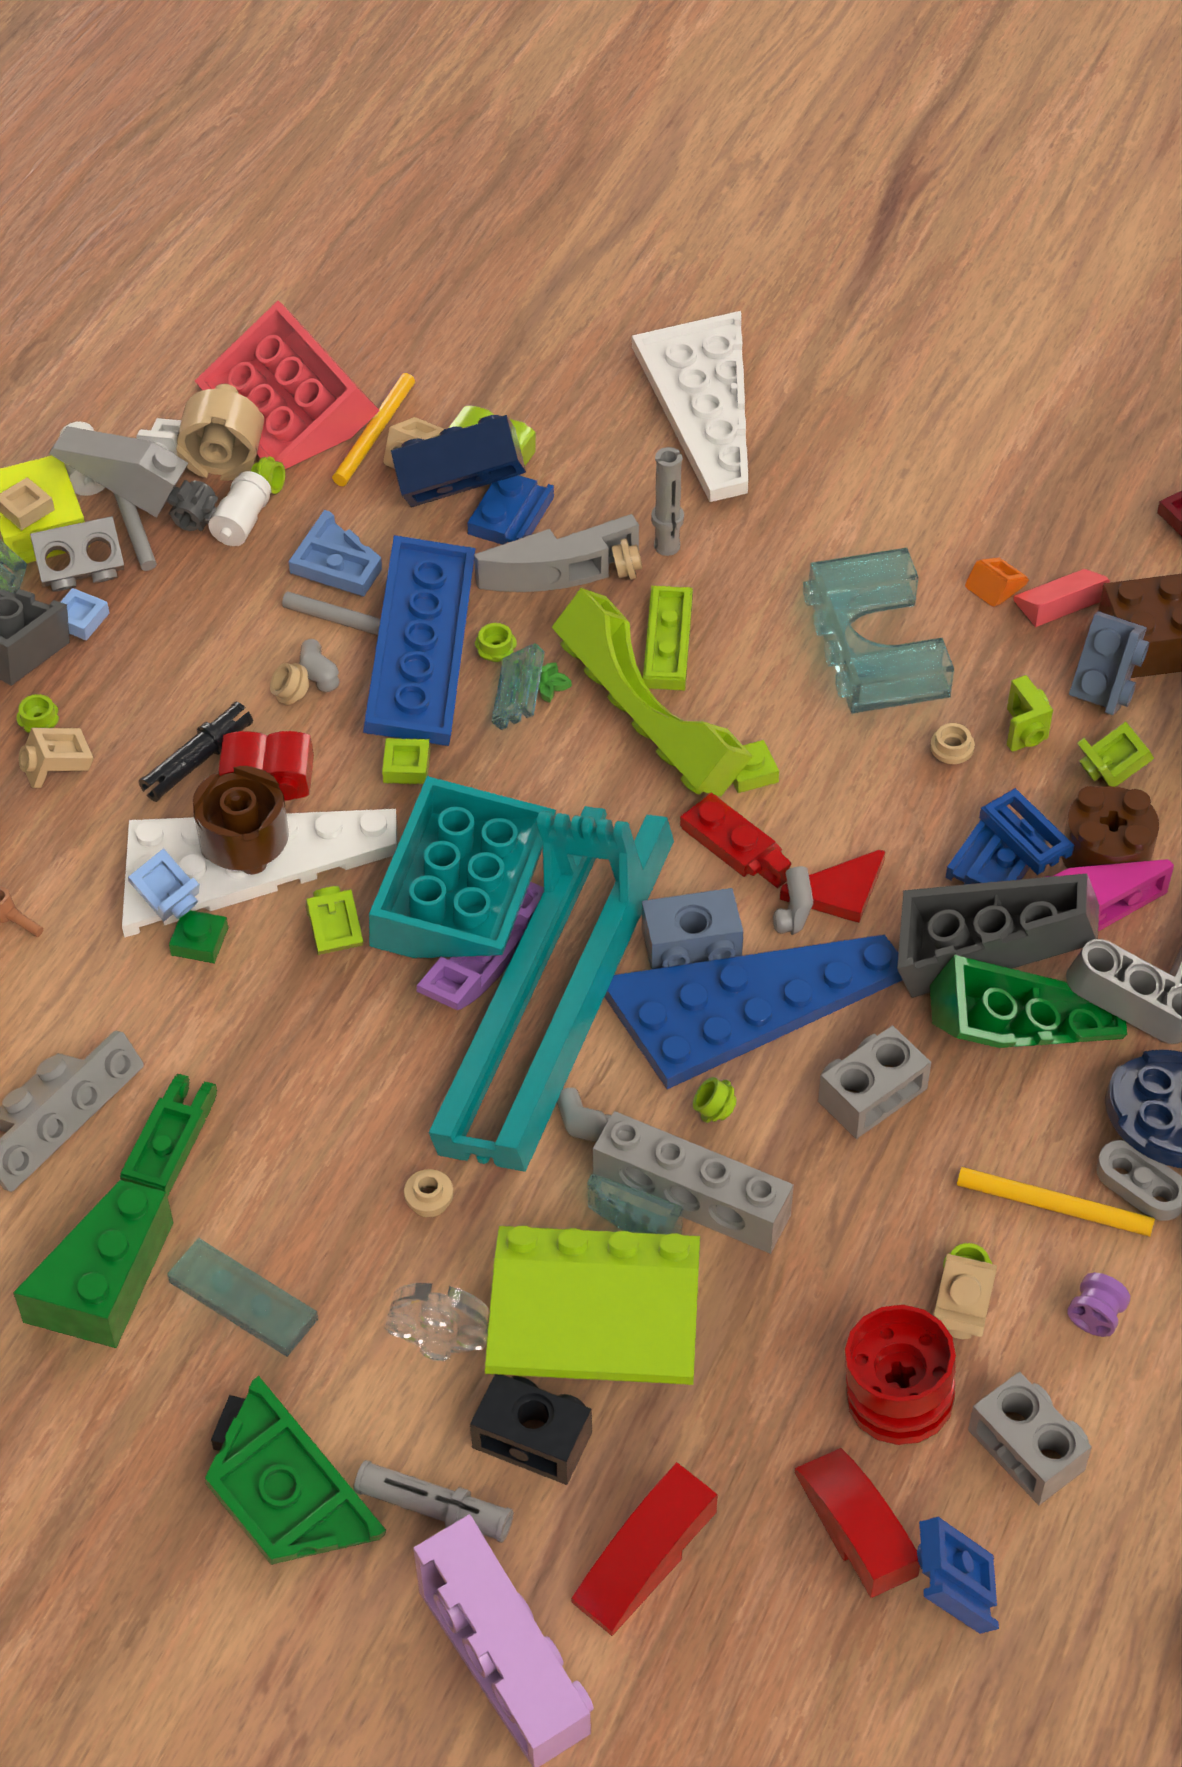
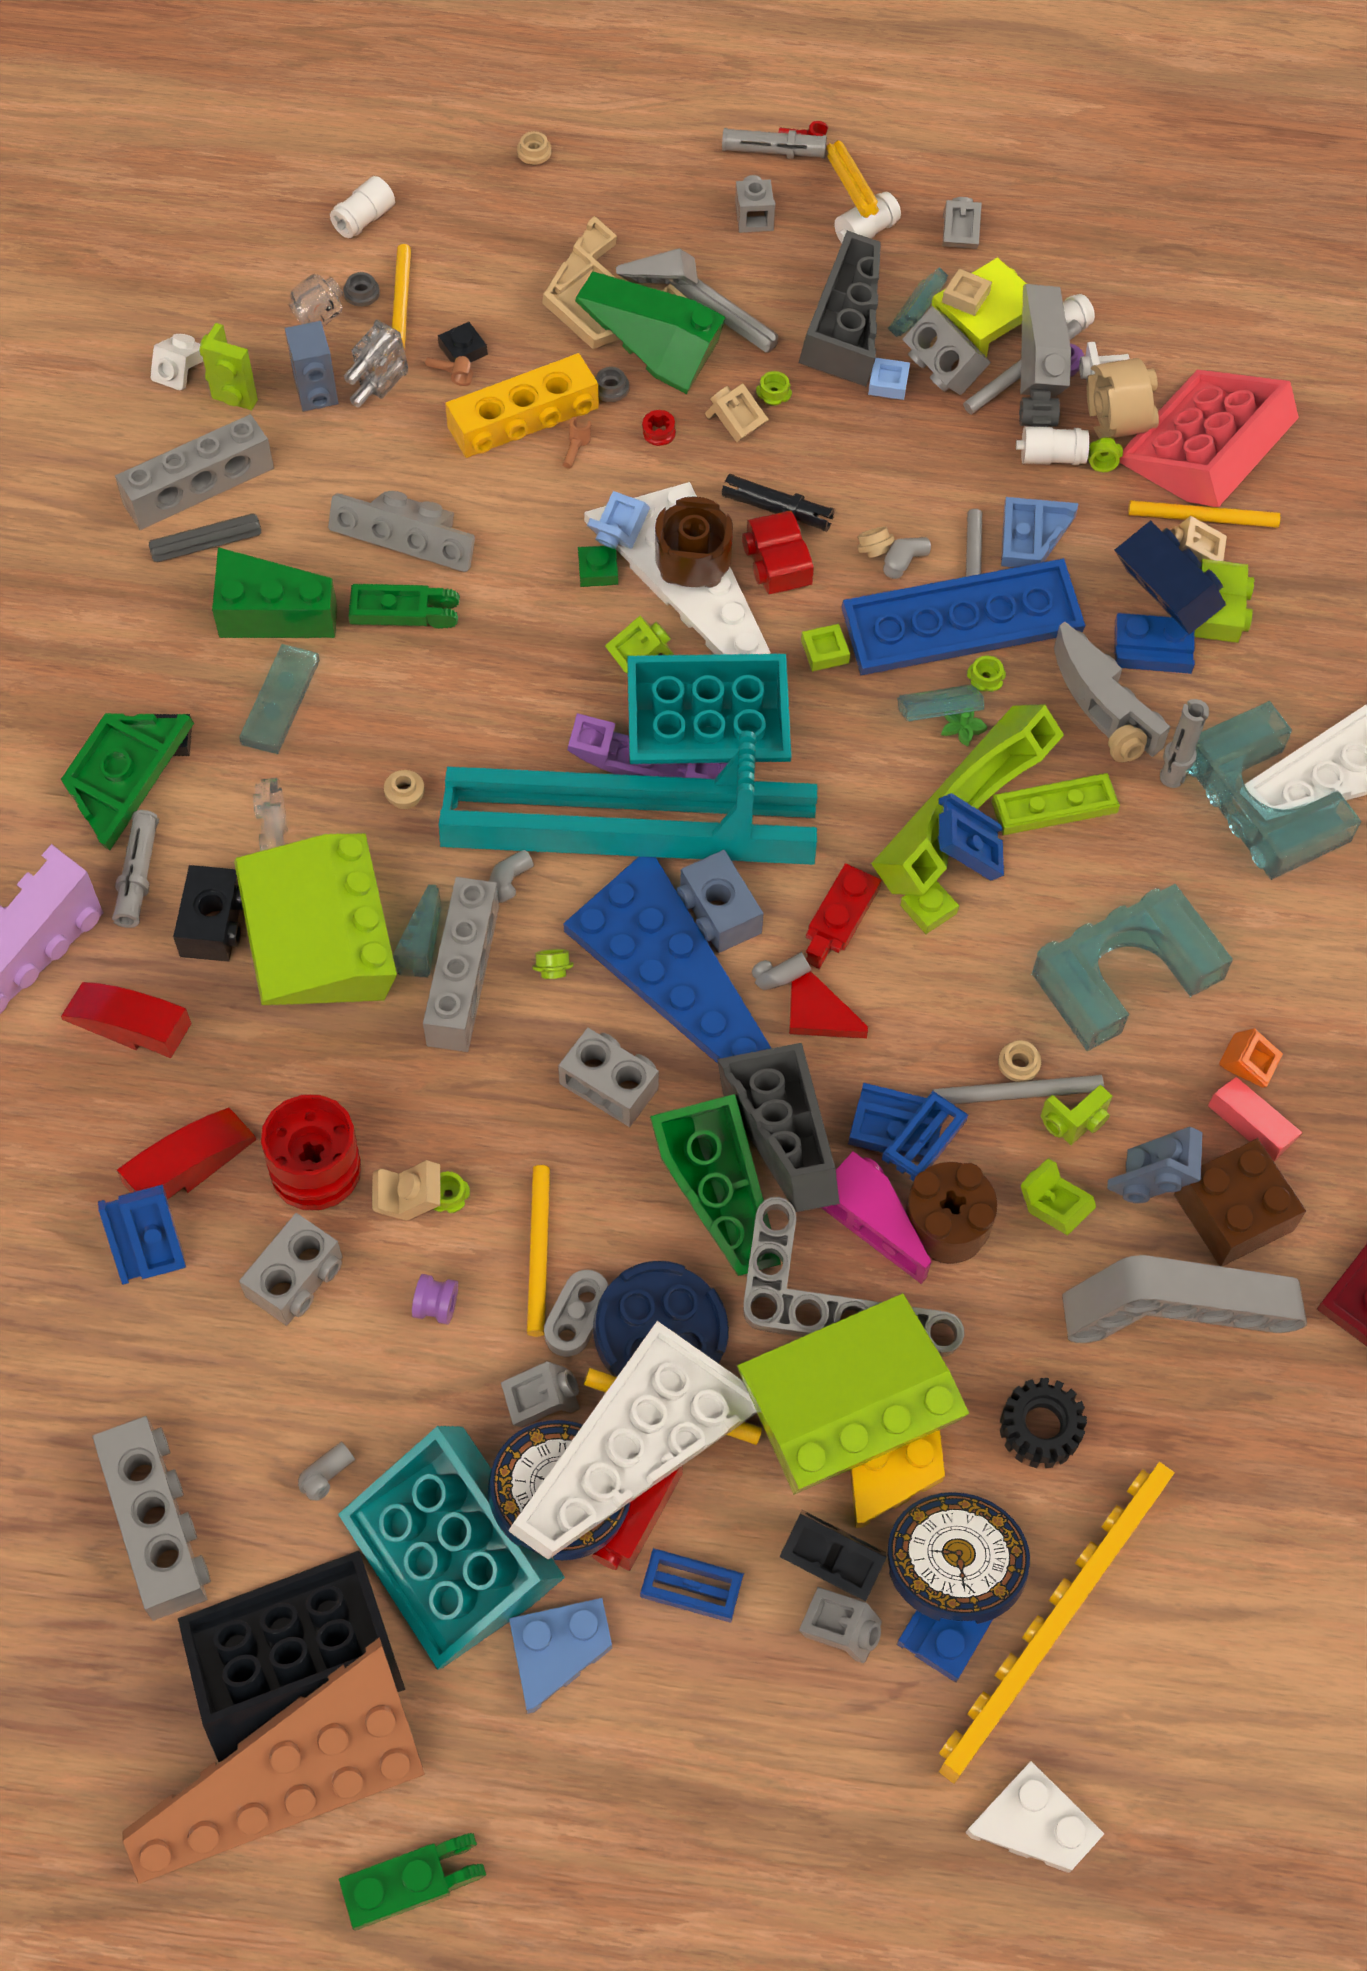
camera: 70 degrees right, 10 degrees up
(31, 820) = (659, 418): none -> red bush
(699, 702) = (970, 837): none -> blue plate
(771, 489) = (1275, 837): none -> clear light blue arch
(981, 757) = (1021, 1089): none -> light grey bar

